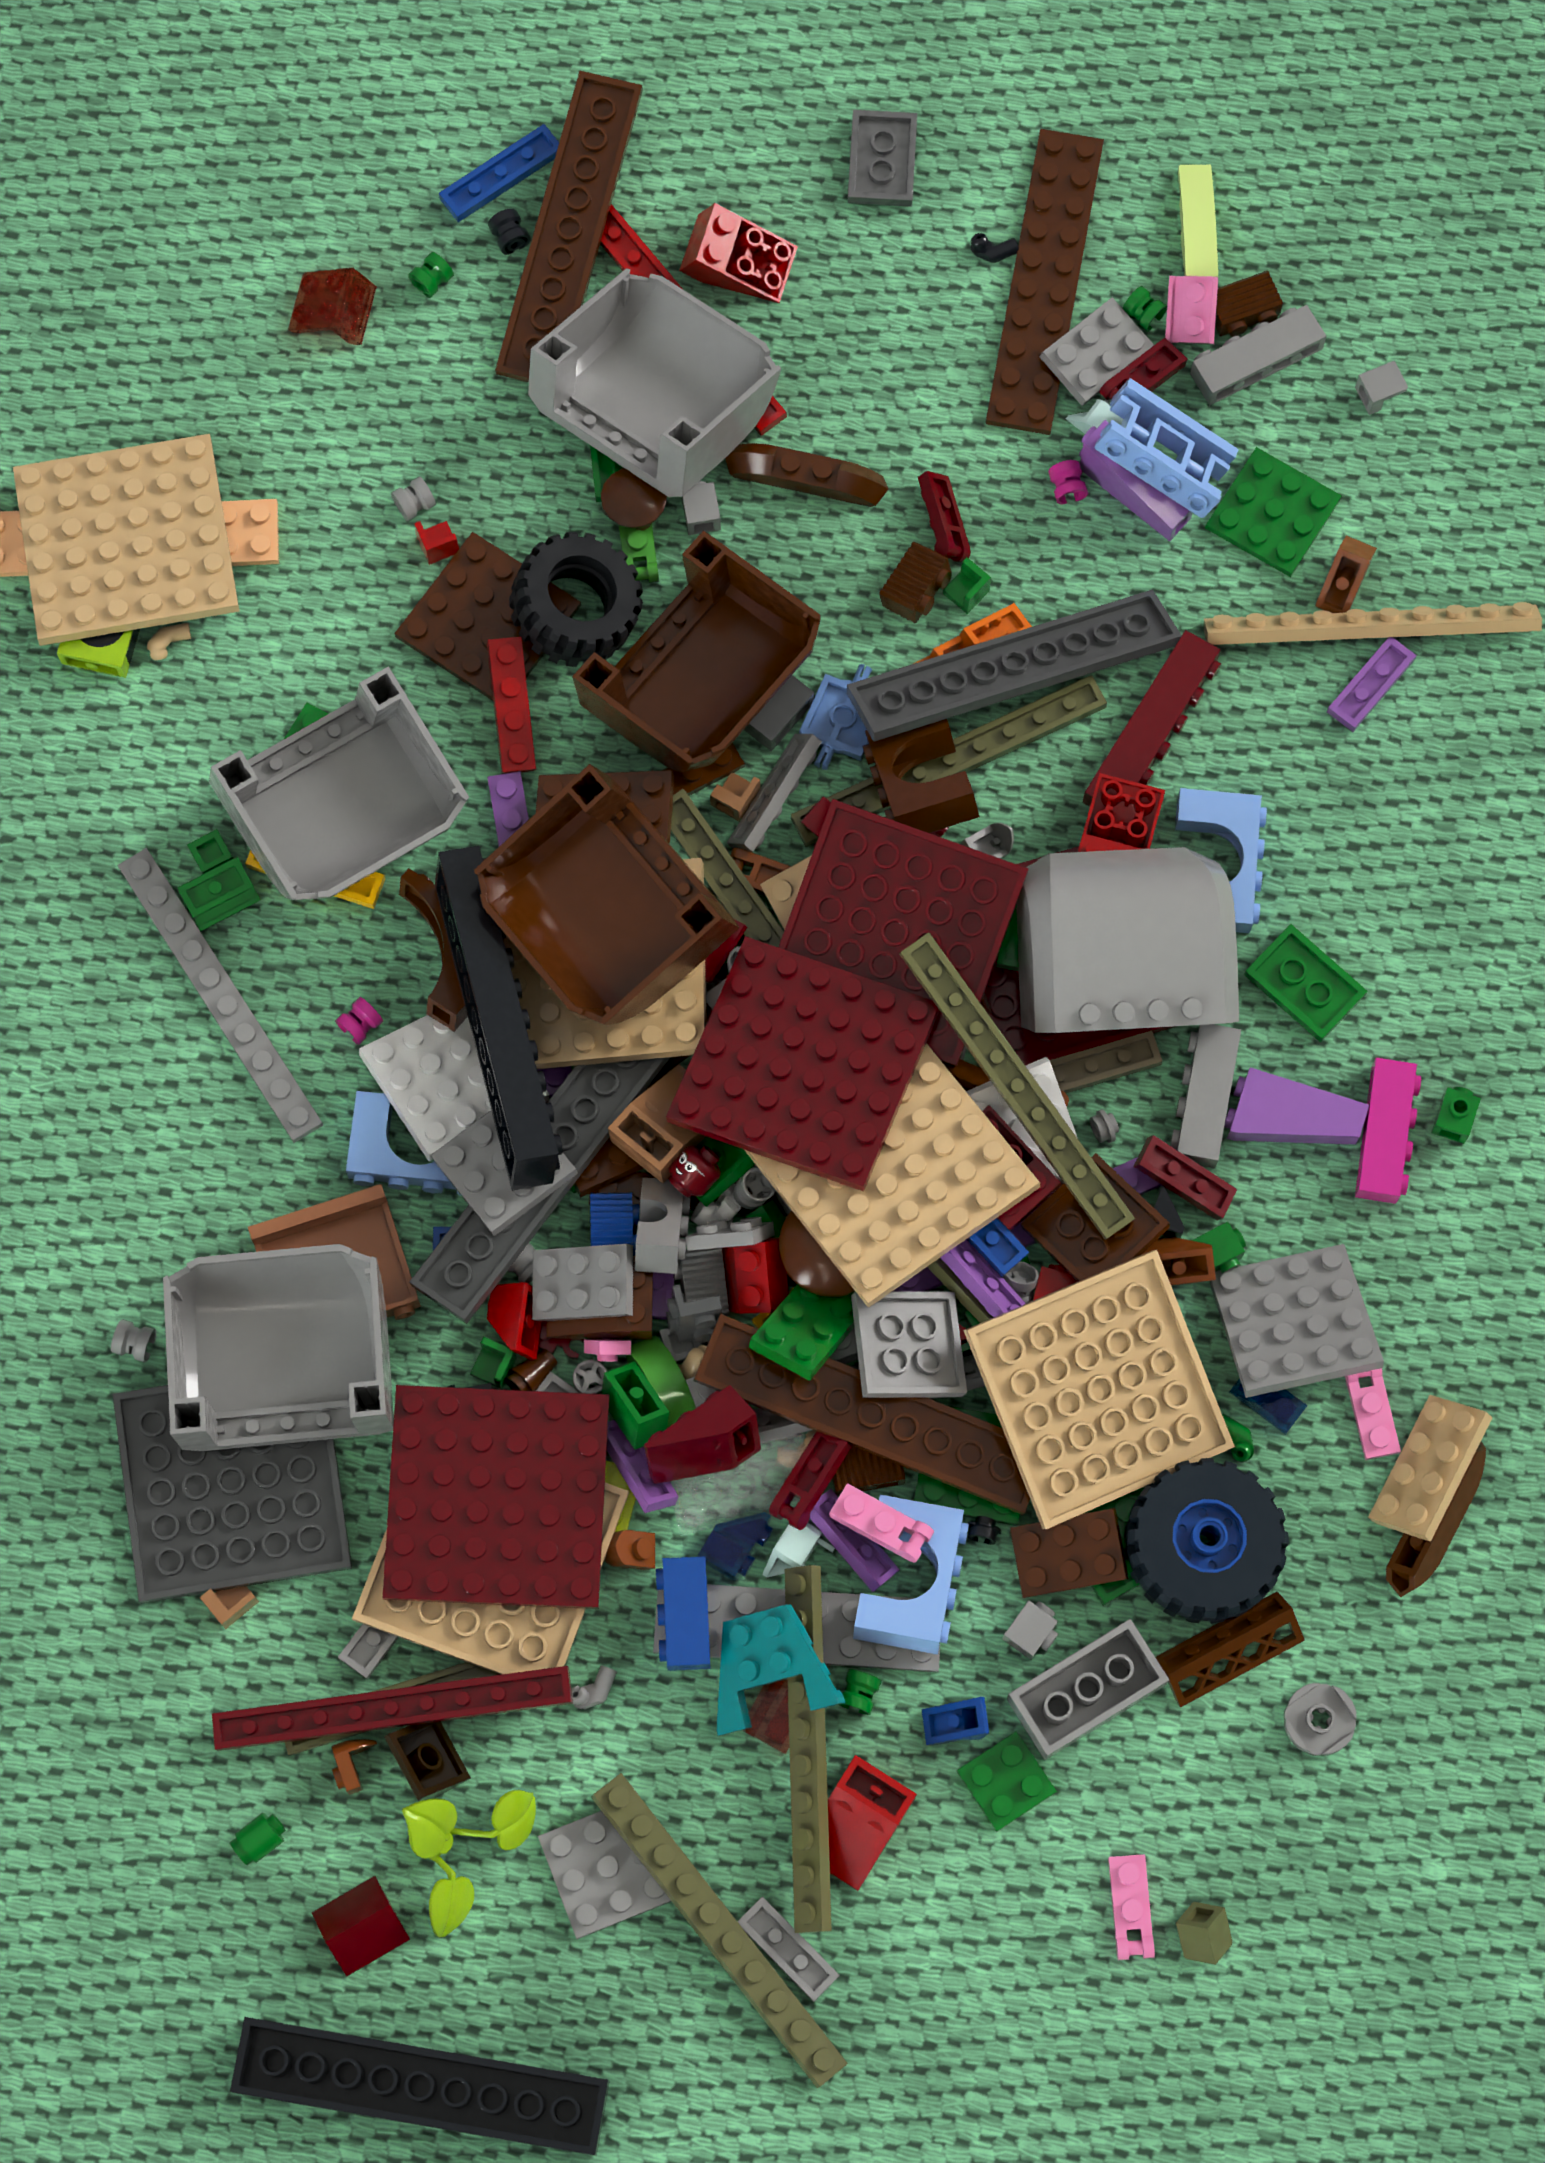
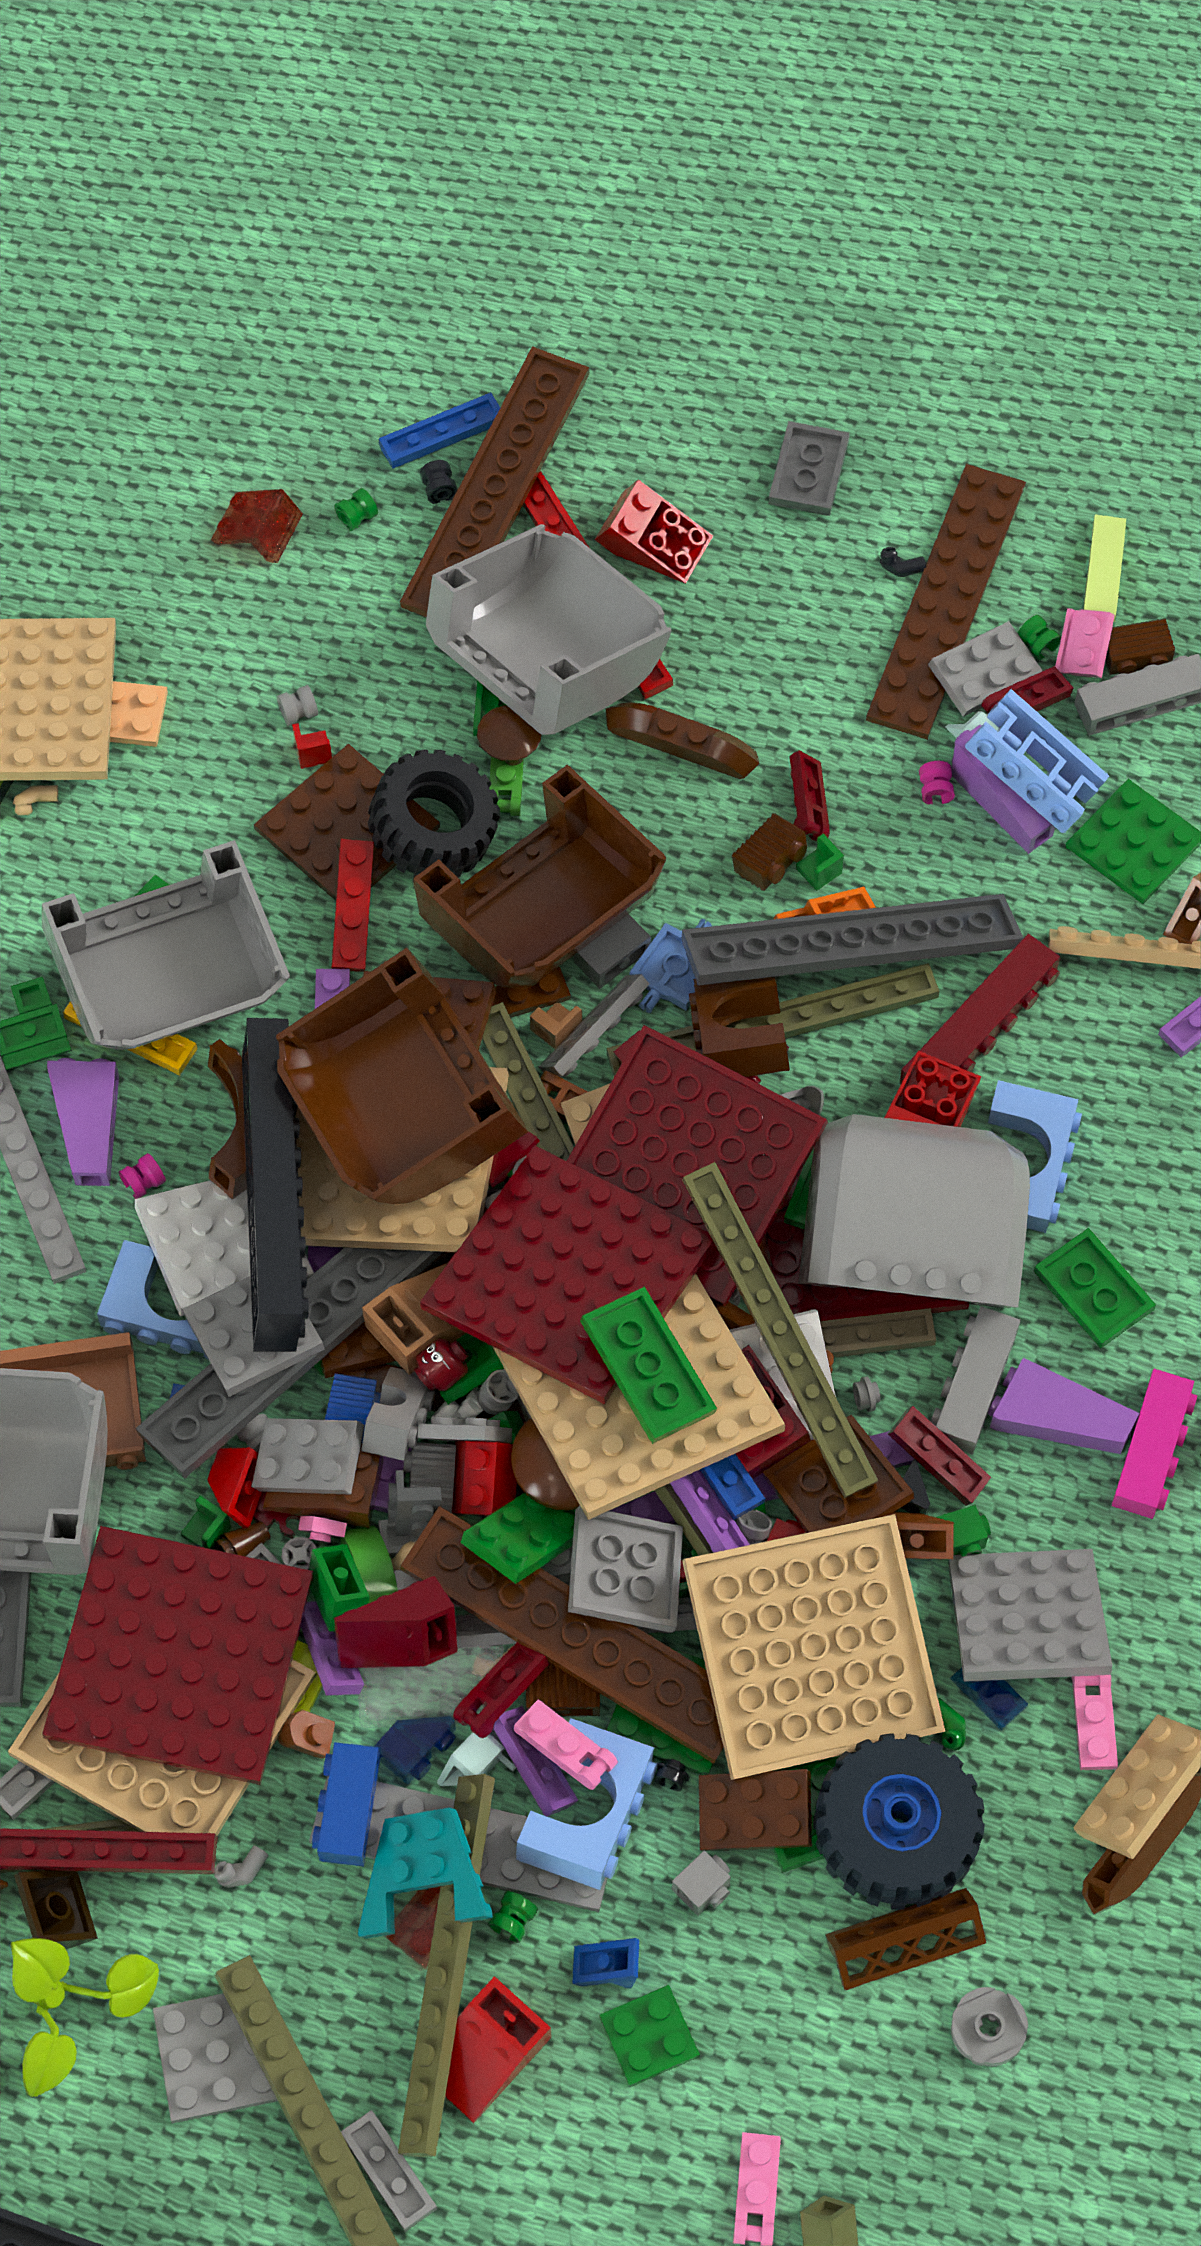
camera: 10 degrees right, 10 degrees down
(290, 962) = (87, 1115): none -> medium lavender slope
(701, 508) = (574, 750): light grey brick -> none
(901, 1148) = (648, 1365): none -> green plate
(1087, 1689) = (749, 1952): light grey brick -> none

